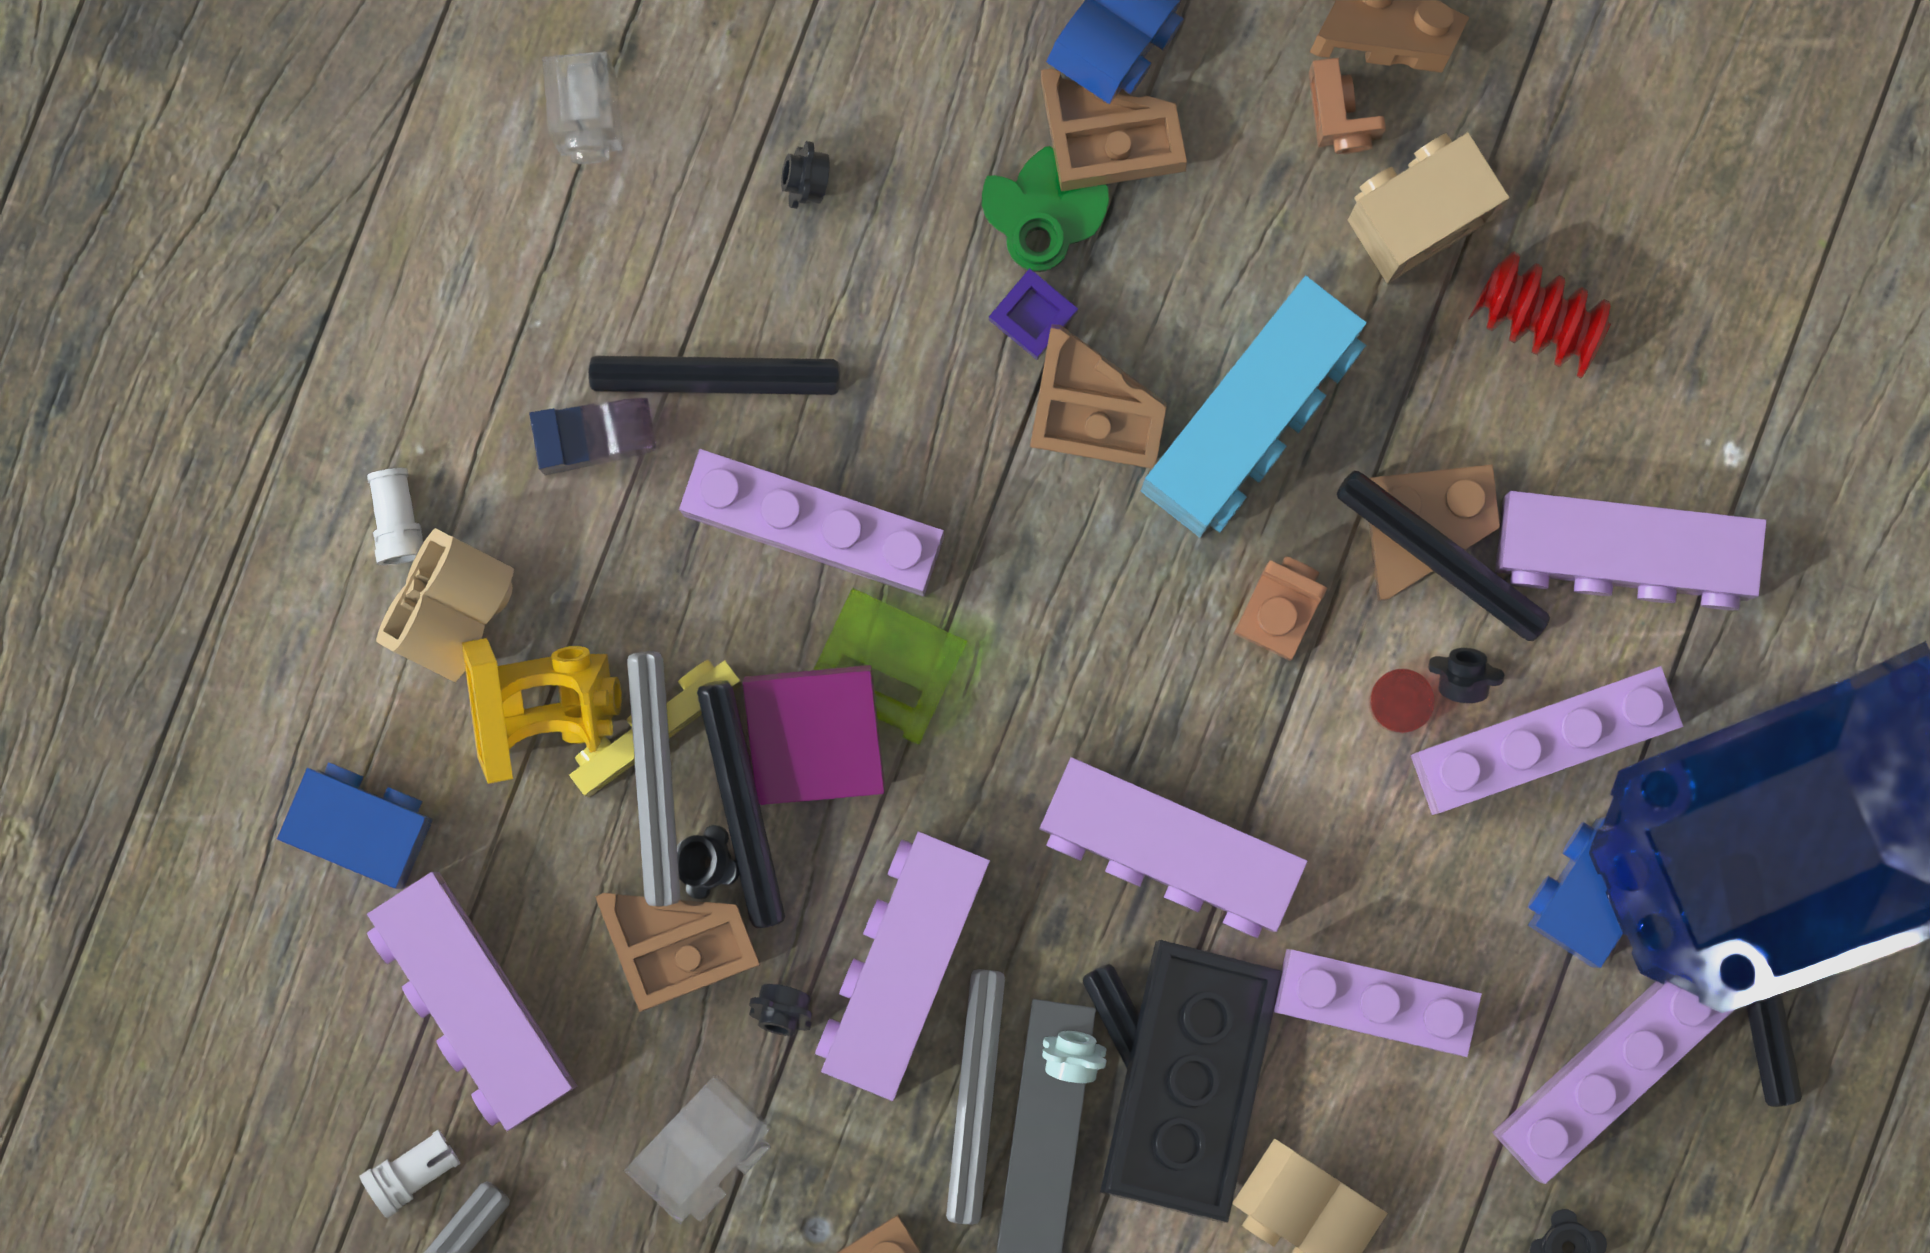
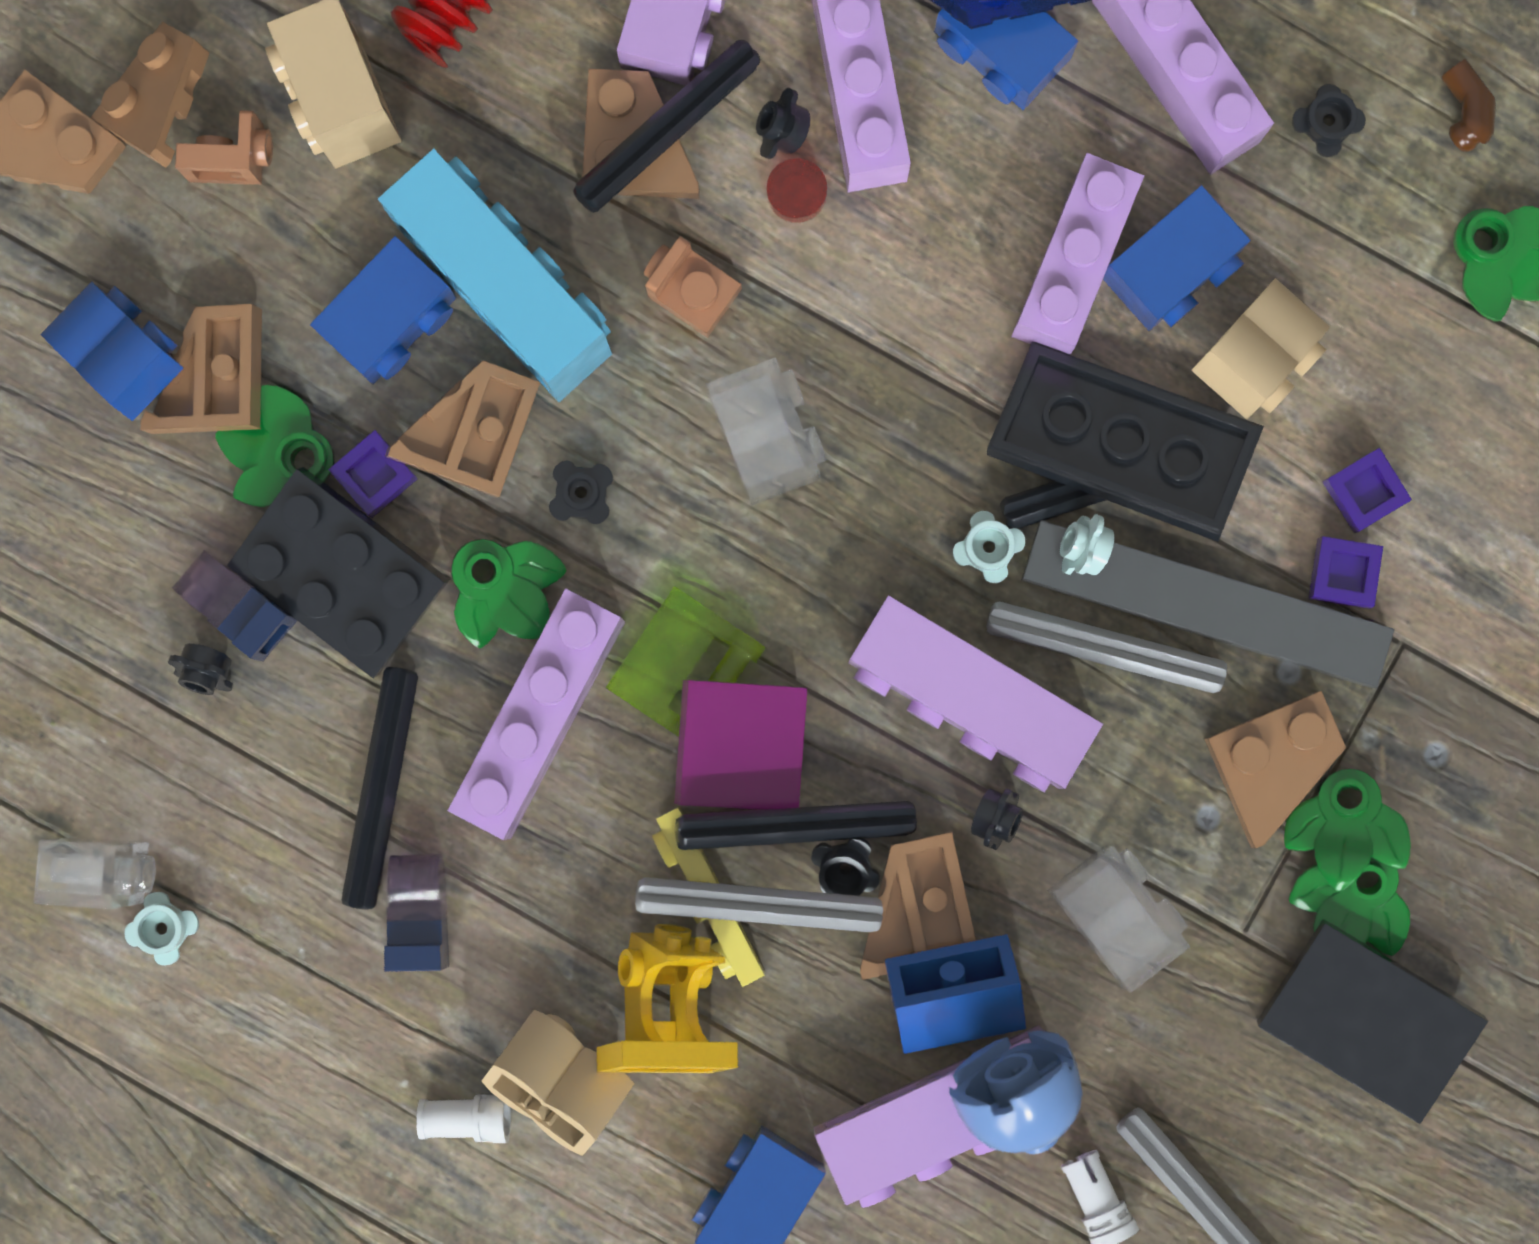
camera: 80 degrees left, 0 degrees up
(503, 1069) = (1020, 1094): none -> medium blue cylinder
(530, 163) = (144, 933): none -> light aqua plate
(595, 992) = (956, 993): none -> blue brick
(875, 196) = (234, 606): none -> leg
(926, 296) = (337, 572): none -> black plate
(932, 476) = (511, 596): none -> green plate
(1061, 516) = (593, 505): none -> black plate
(1066, 976) = (1006, 543): none -> light aqua plate
(1142, 707) = (765, 430): none -> clear brick
(1172, 846) = (900, 423): lavender brick -> none
(1201, 298) = (385, 312): none -> blue brick
(1390, 1108) = (1176, 259): none -> blue brick

